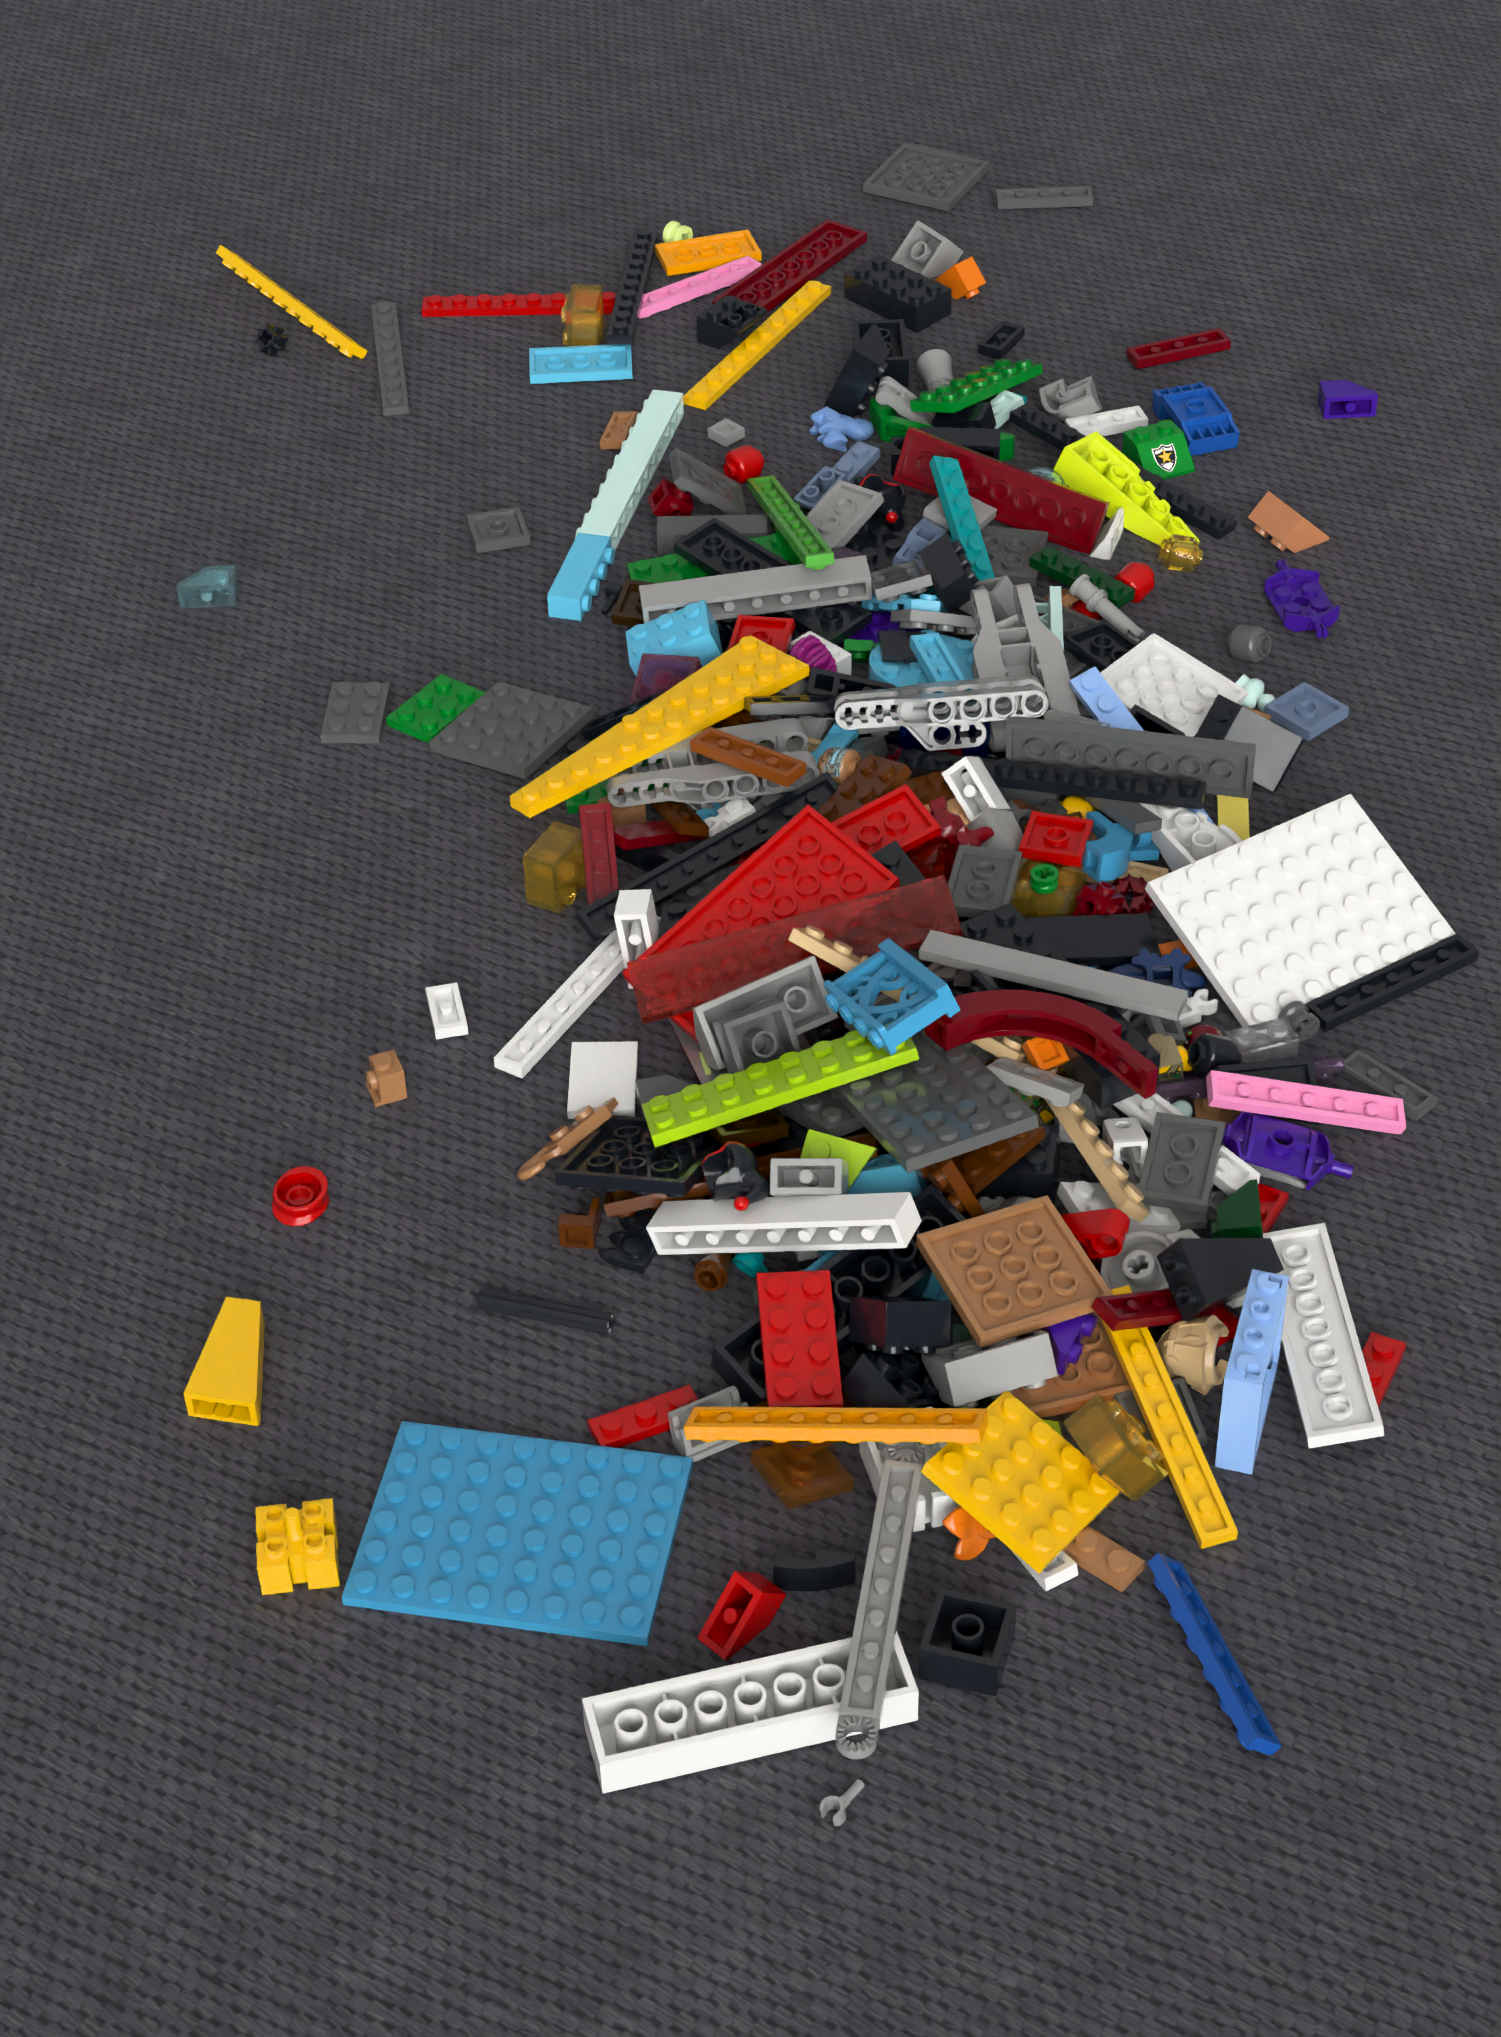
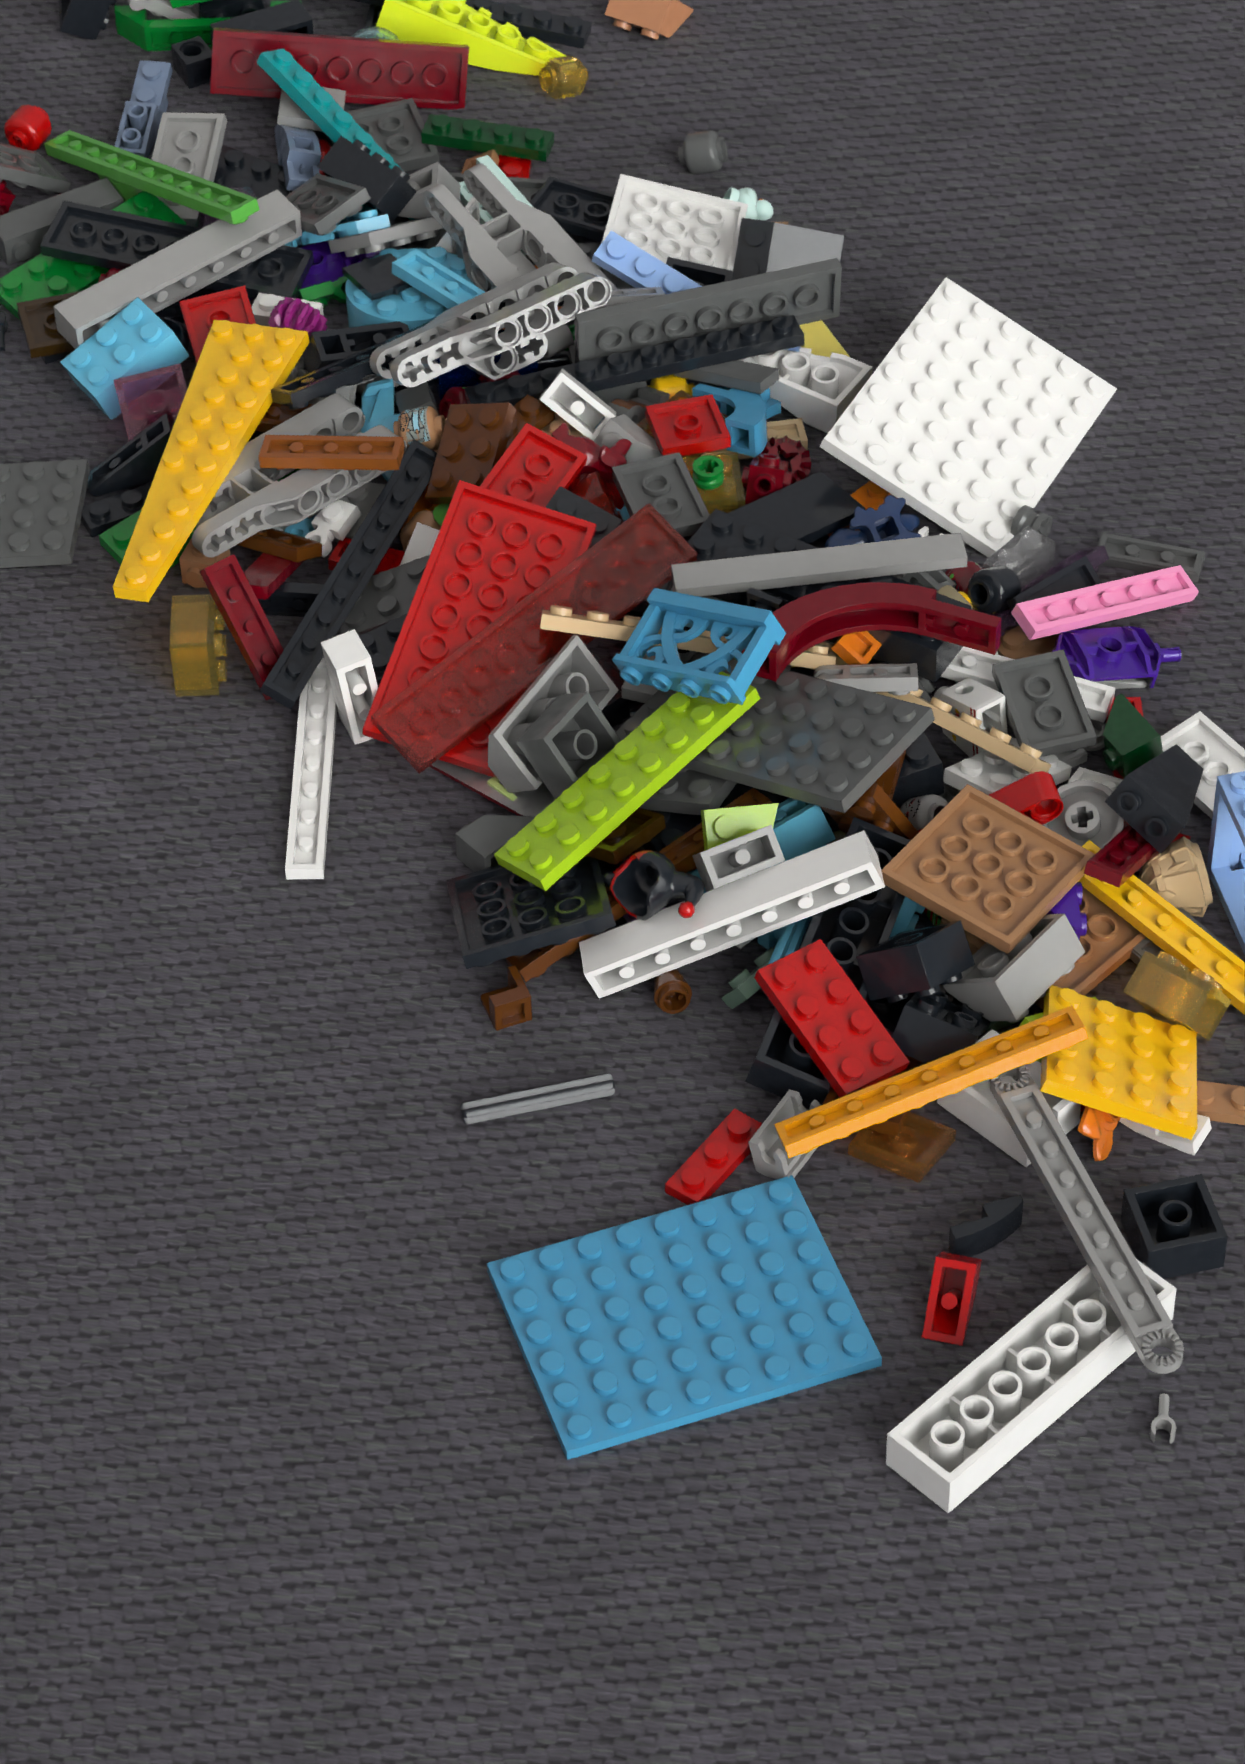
camera: 30 degrees left, 5 degrees up
(230, 1367) = (276, 1285): yellow slope -> none
(297, 1546) = (489, 1424): yellow brick -> none
(300, 1196) = (198, 1090): red piece -> none
(385, 1078) = (191, 934): medium nougat brick -> none
(446, 1011) = (191, 840): white plate -> none
(566, 1137) = (426, 920): medium nougat plate -> none
(601, 1073) = (407, 847): white tile -> none
(634, 1246) = (571, 995): black plate -> none
(750, 1263) = (700, 970): teal plate -> none
(837, 427) = (98, 53): medium blue animal -> none
(894, 500) = (234, 134): black piece -> none
(1097, 601) = (525, 158): light grey pin -> none
(1109, 536) = (477, 84): white slope -> none
(1138, 577) = (543, 116): red head -> none
(1299, 587) = (704, 75): dark purple plate -> none
(1306, 711) = (809, 203): sand blue plate -> none
(1392, 981) = (1087, 452): black plate -> none

